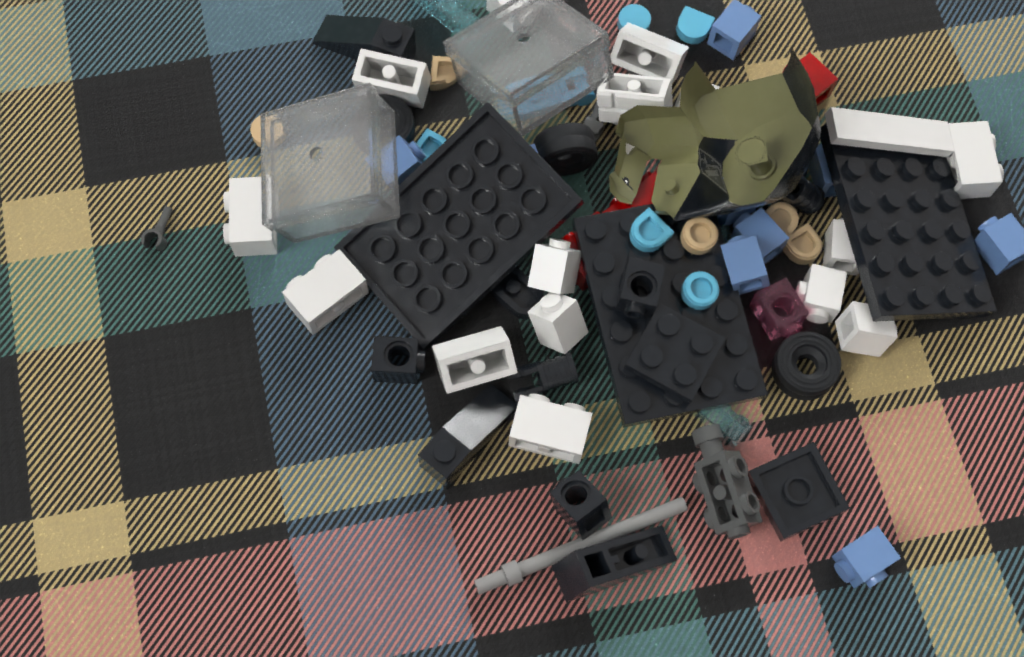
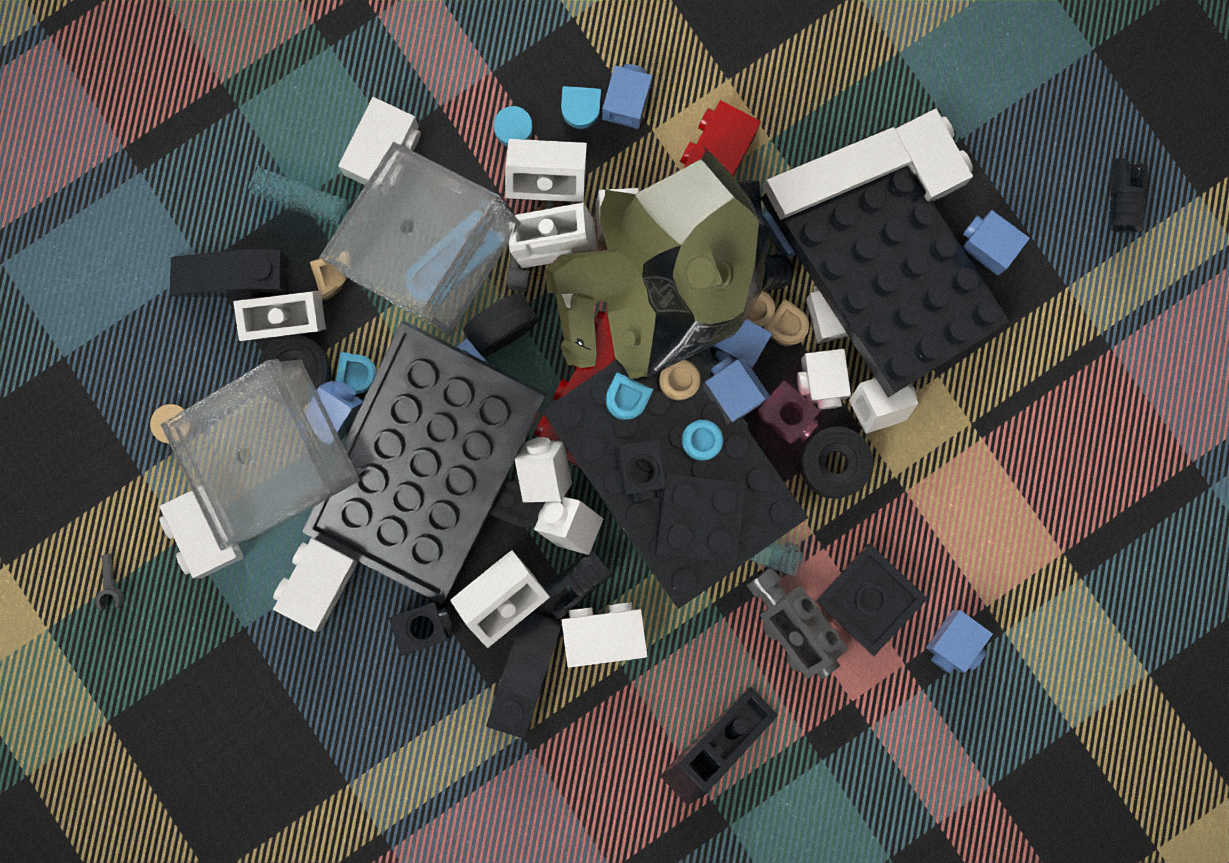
camera: 25 degrees left, 15 degrees up
(513, 572) = (624, 794): light grey bar -> none
(586, 516) = (679, 708): black brick -> none

